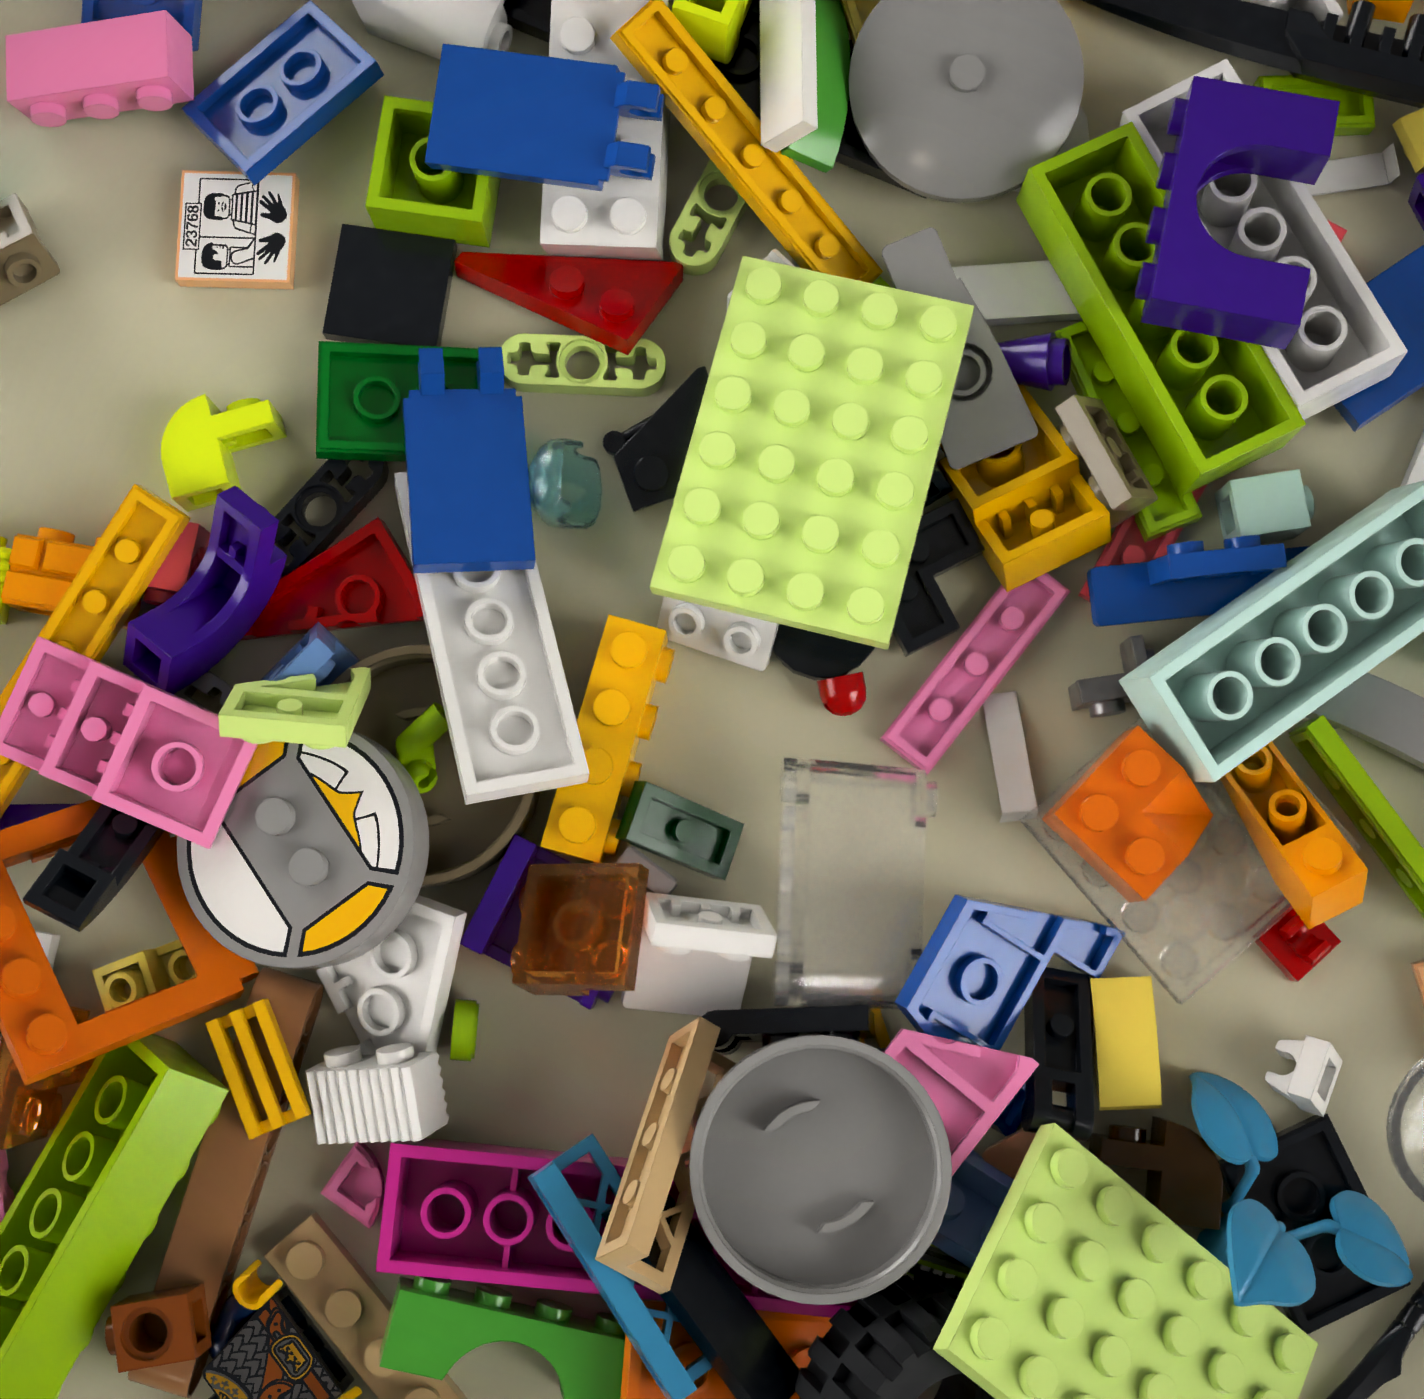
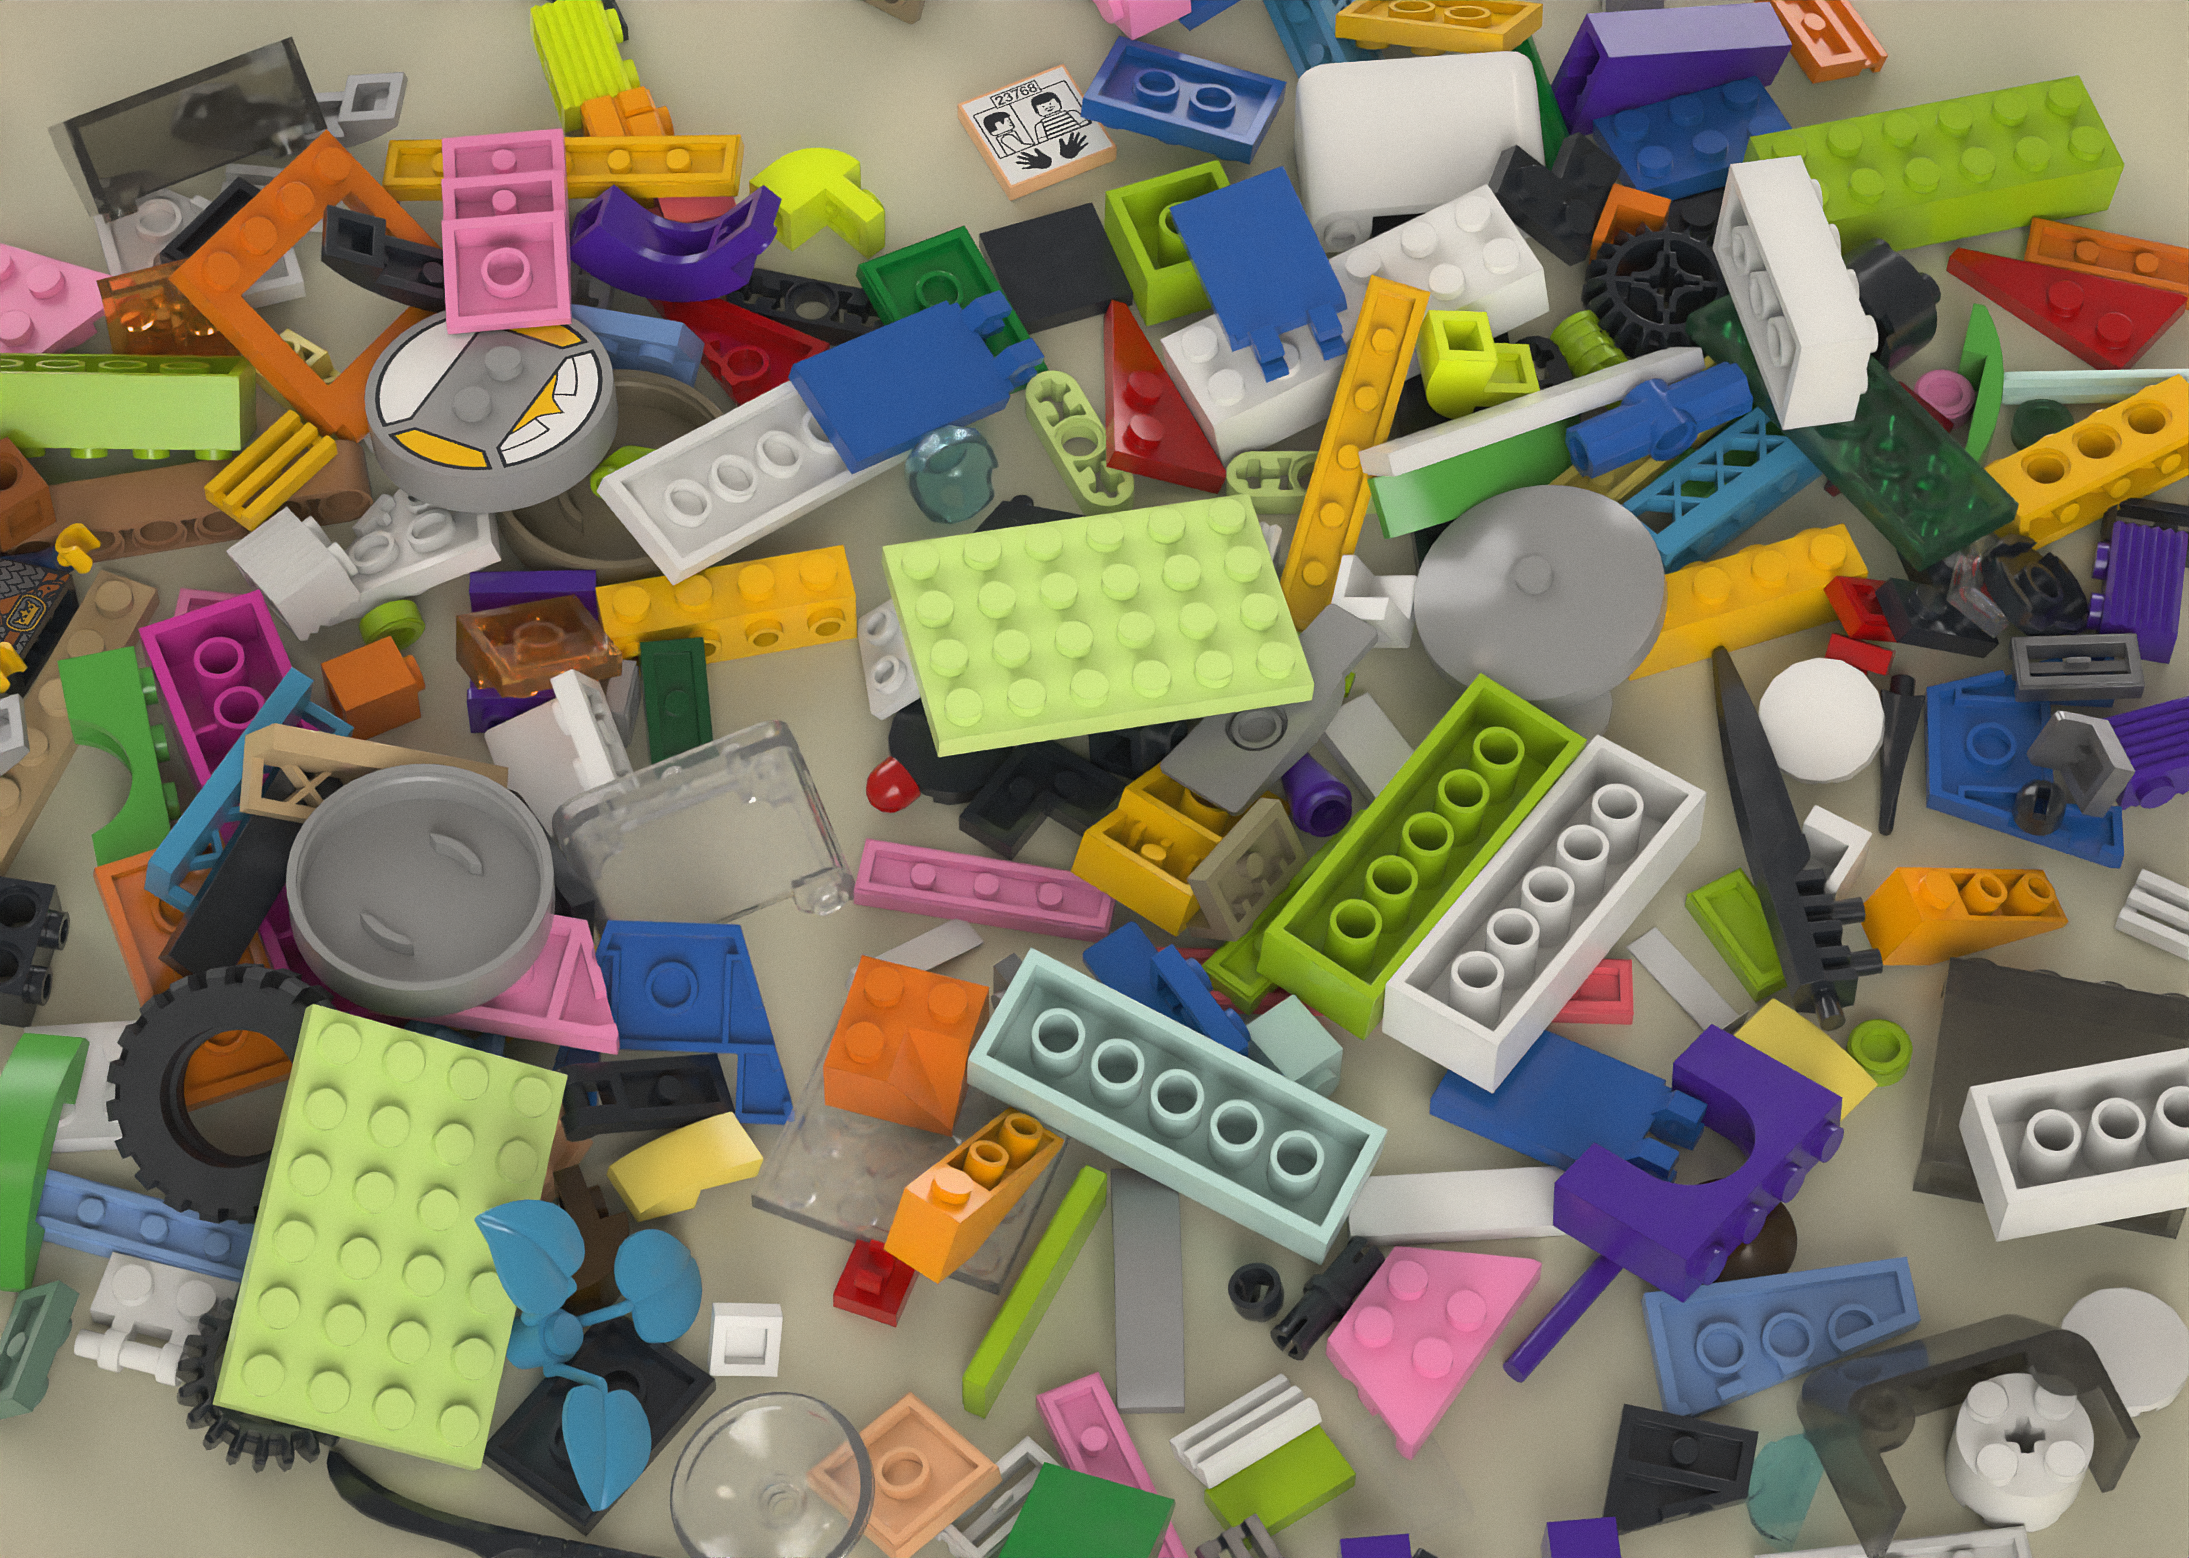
camera: 60 degrees right, 25 degrees down
(296, 710) = (607, 330): yellowish green wing -> none
(521, 1077) = (373, 688): none -> orange brick
(879, 211) = (1378, 600): none -> white panel
(1192, 277) = (1596, 789): dark purple arch -> none

